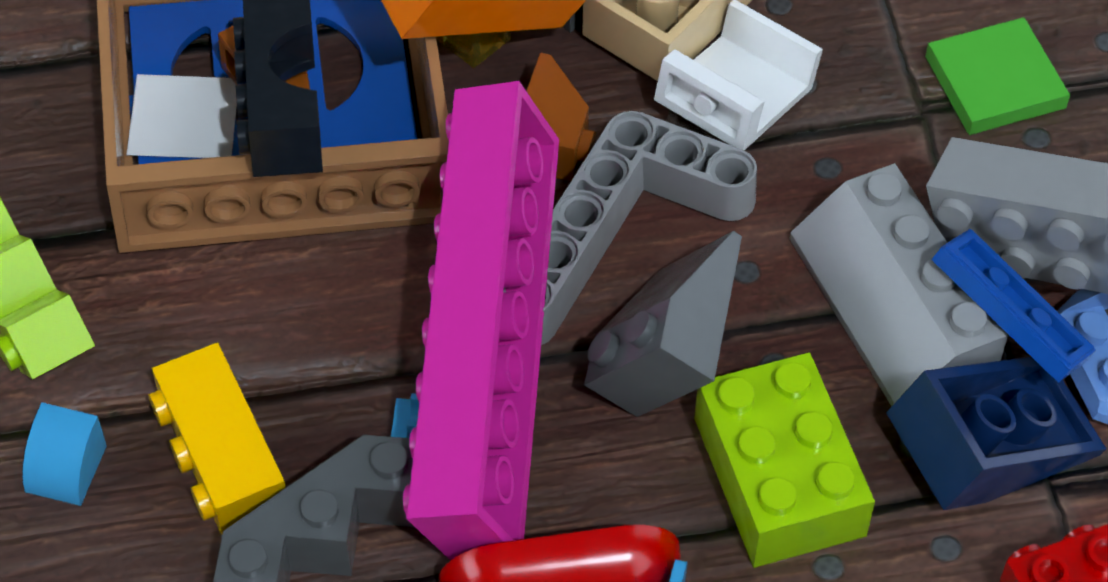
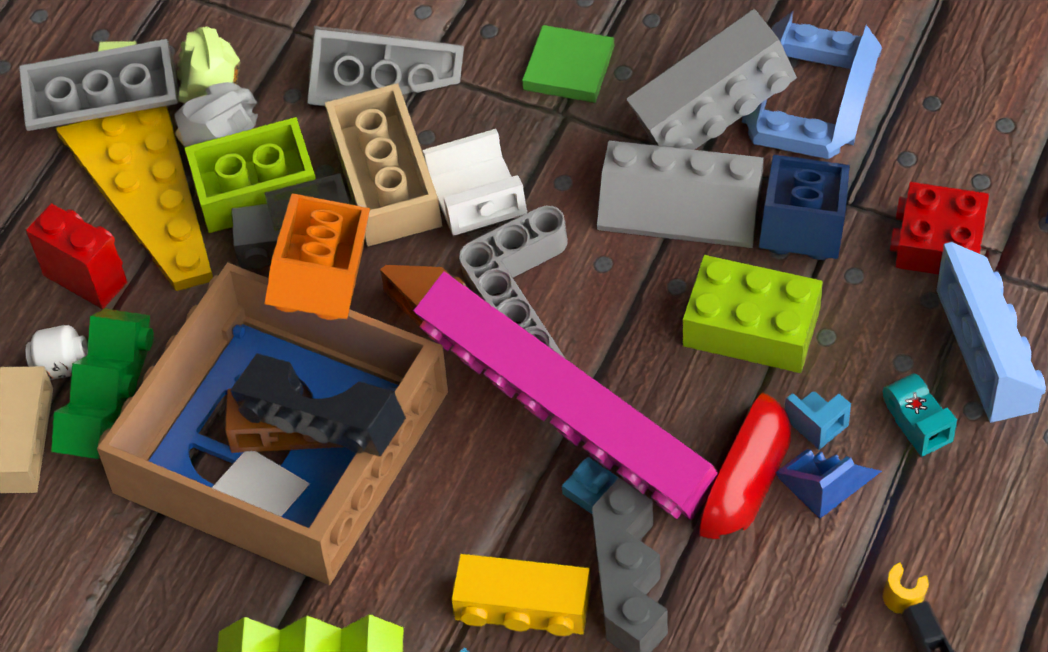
camera: 50 degrees left, 0 degrees up
(668, 332) = (630, 313): dark grey slope -> none
(1014, 304) = (747, 142): blue tile -> none

